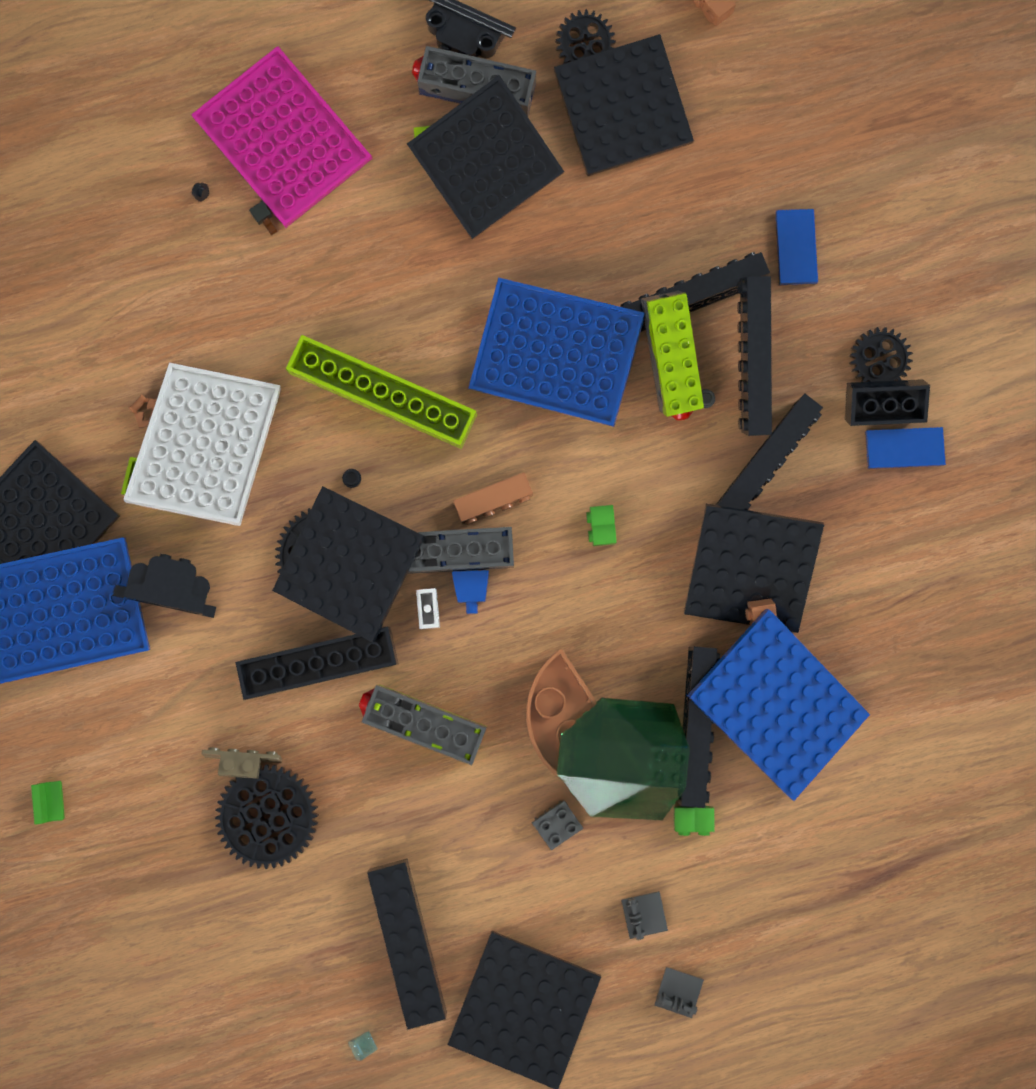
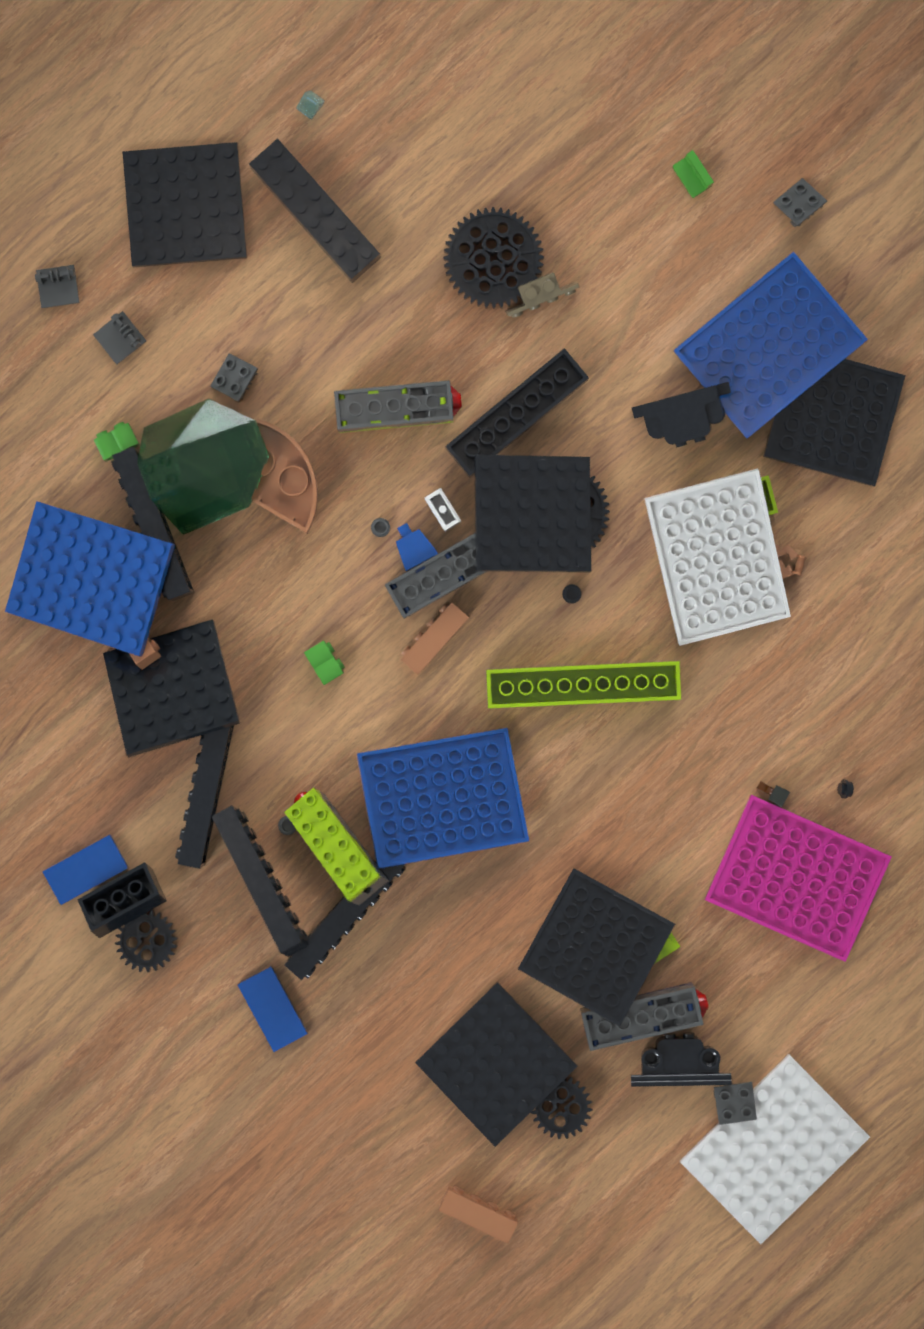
camera: 155 degrees right, 5 degrees up
(492, 622) = (380, 527): none -> dark grey plate

